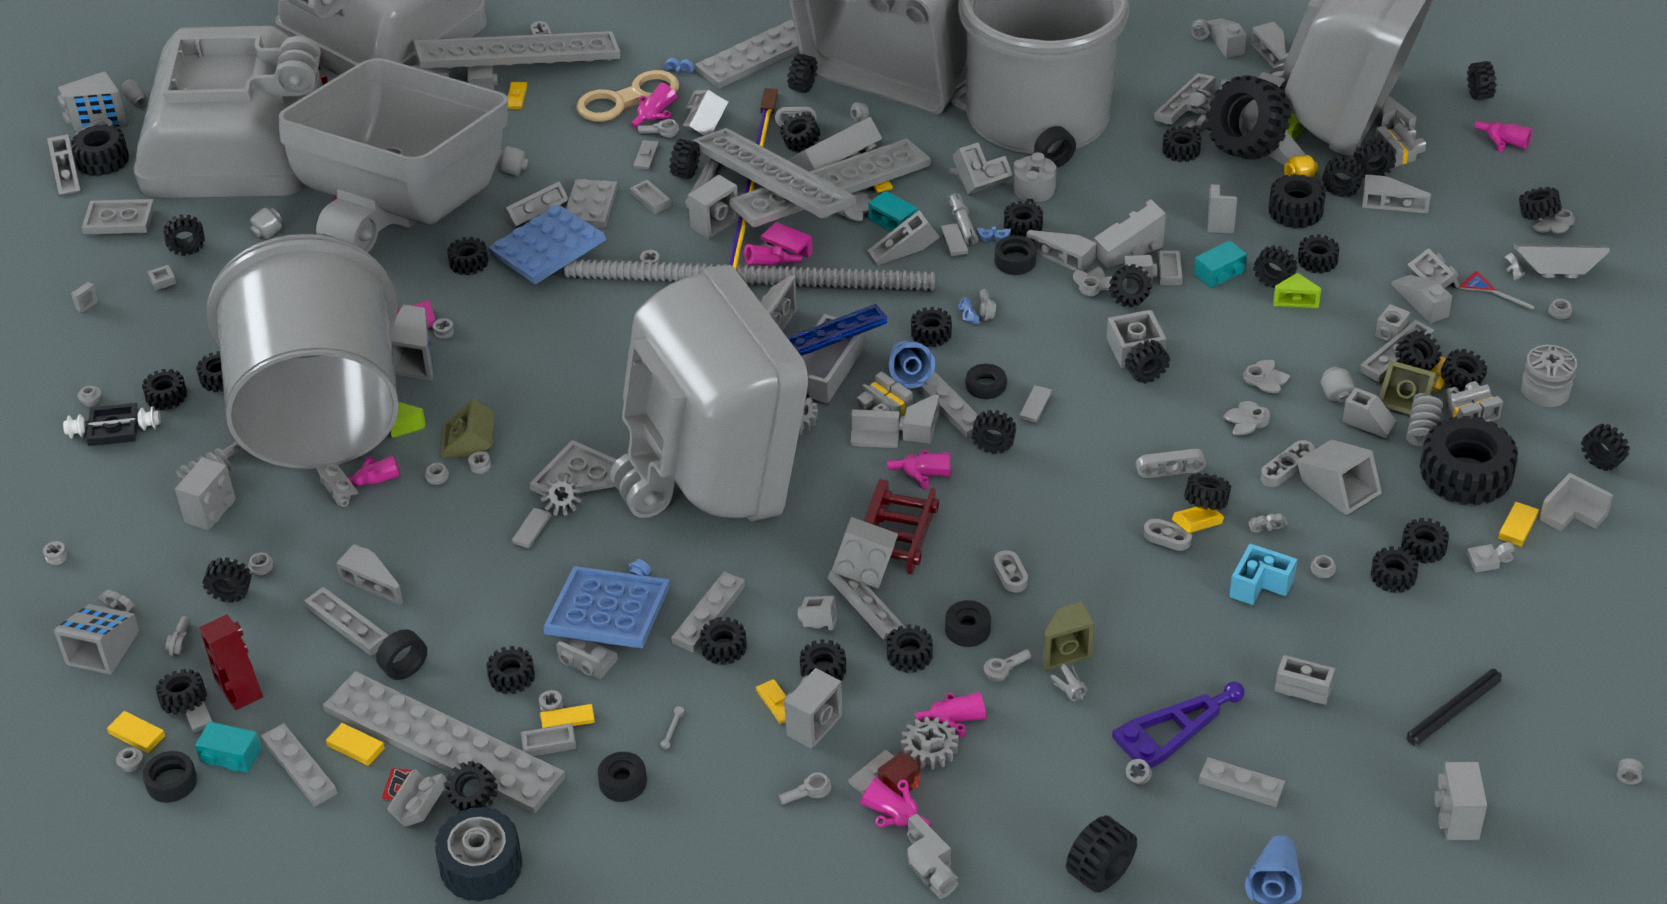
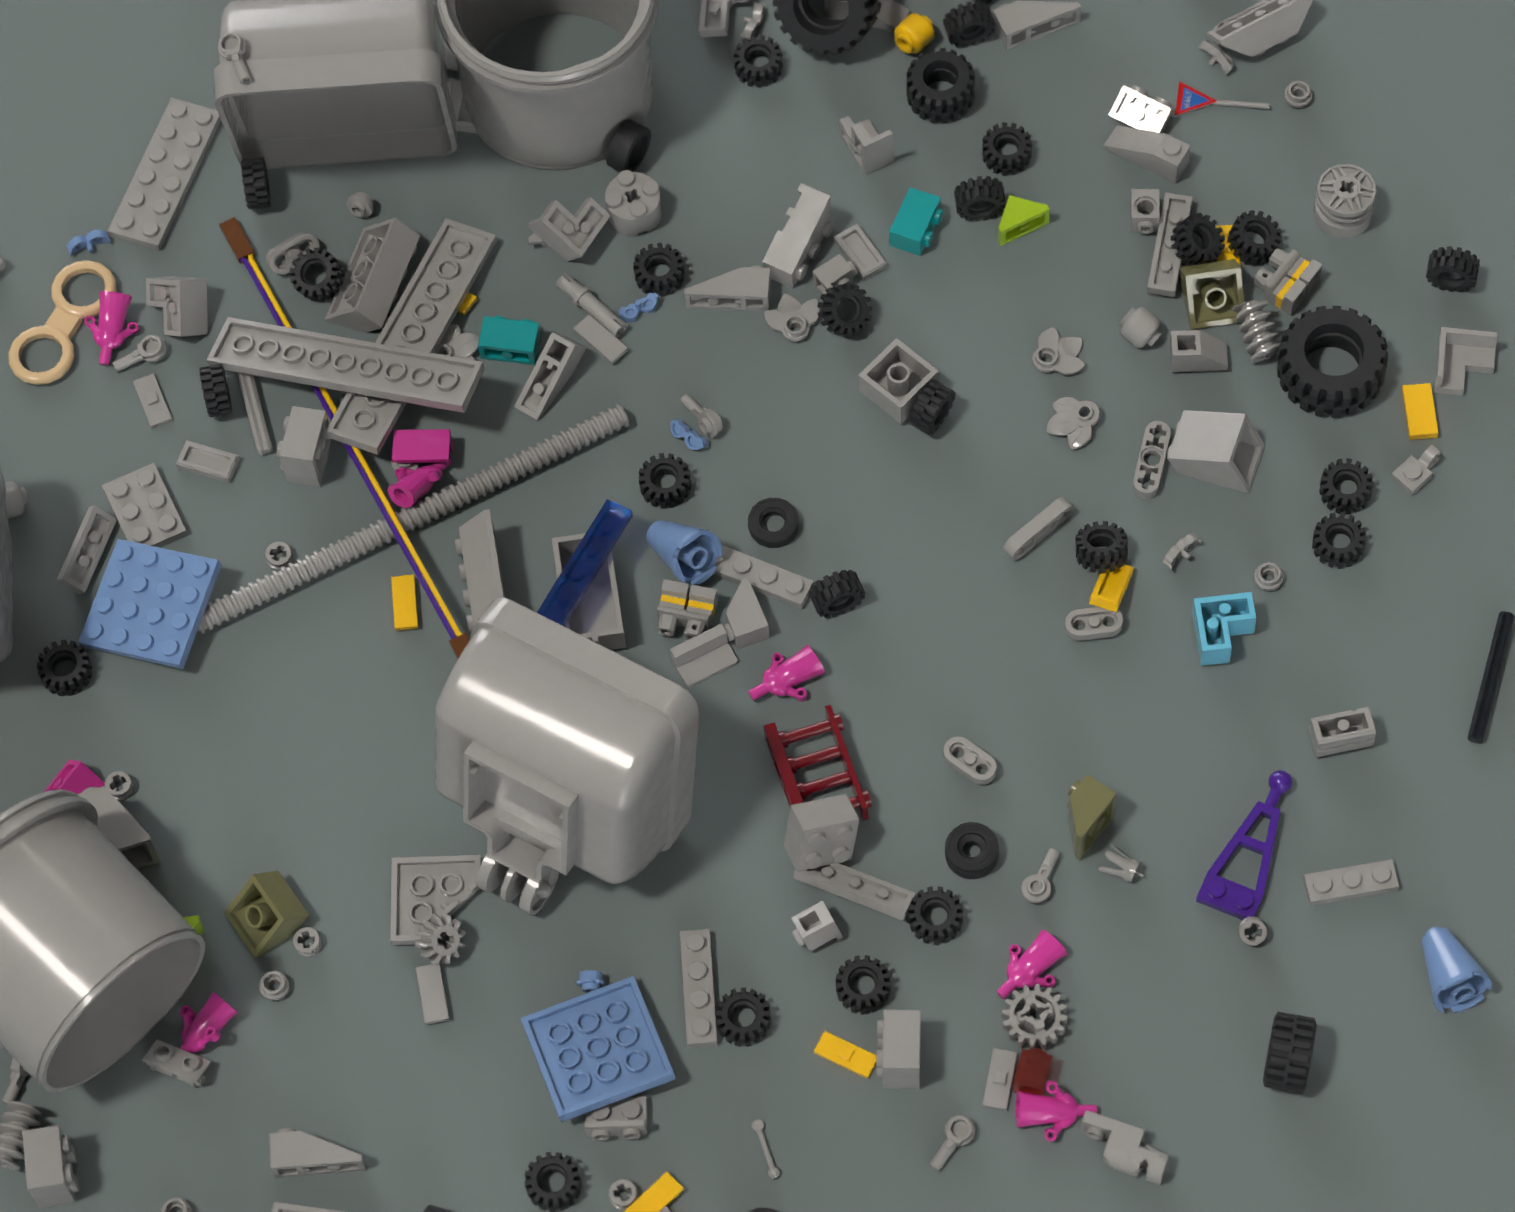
camera: 30 degrees left, 20 degrees up
(1015, 266) = (685, 346): black tyre -> none
(1035, 404) = (845, 524): light grey piece -> none

